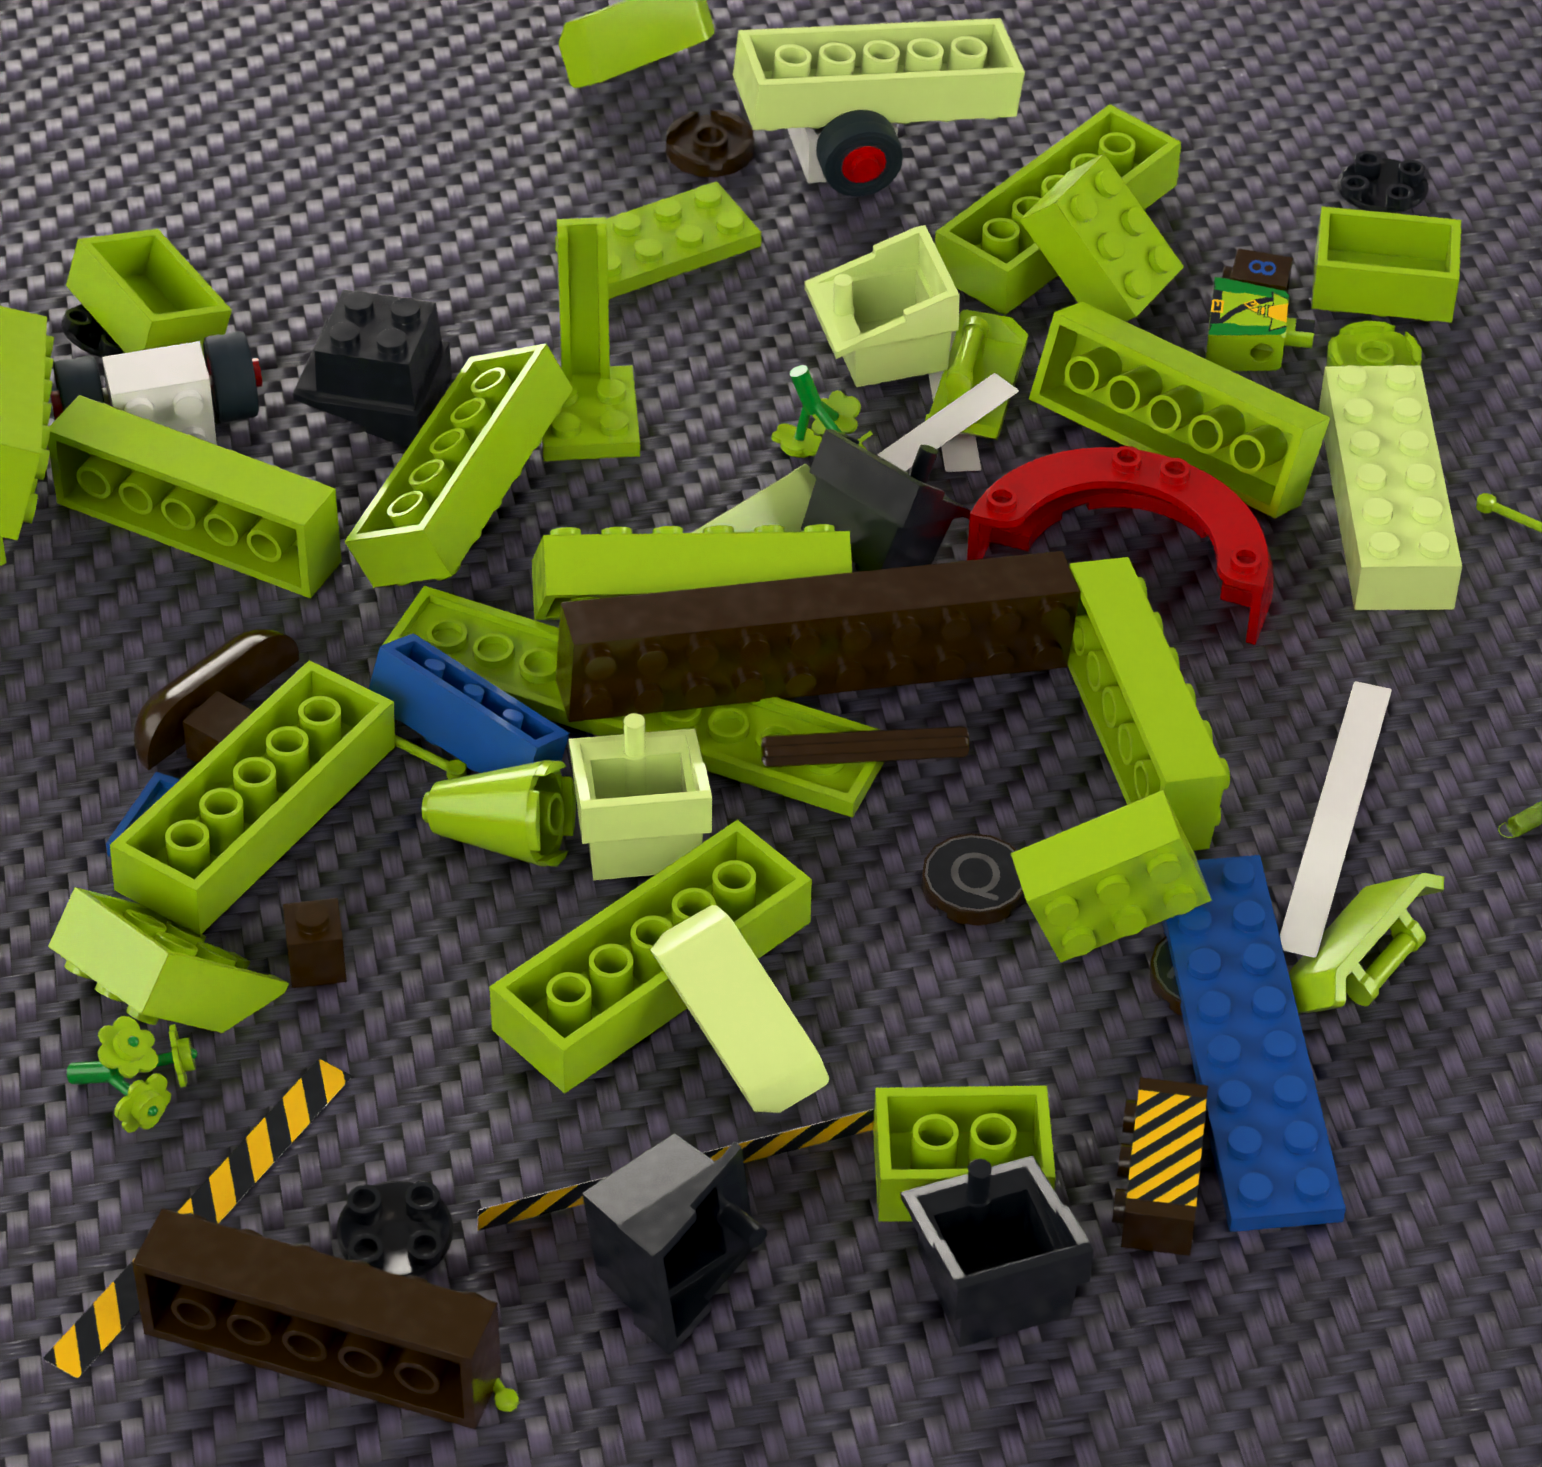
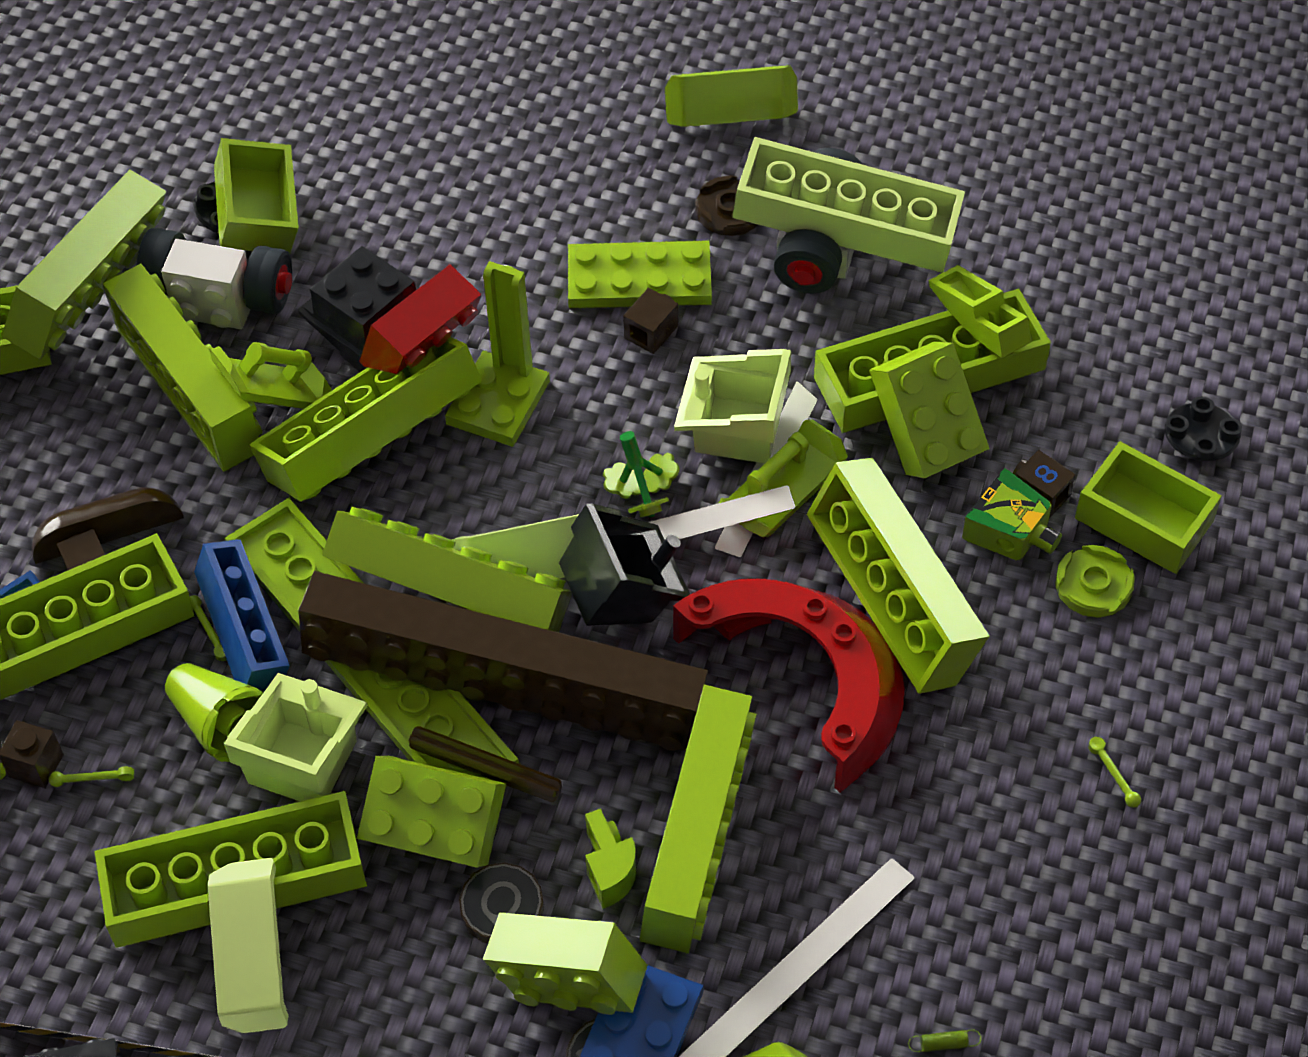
camera: 30 degrees right, 10 degrees up
(335, 465) = (287, 386): none -> lime piece
(436, 926) = (124, 773): none -> lime hinge
(476, 342) = (420, 322): none -> red slope
(712, 276) = (651, 320): none -> dark brown brick
(846, 806) = (431, 811): none -> lime piece
(1067, 787) = (613, 862): none -> lime brick
(1092, 128) = (982, 310): none -> lime slope
(1389, 489) = (1019, 705): yellowish green brick -> none

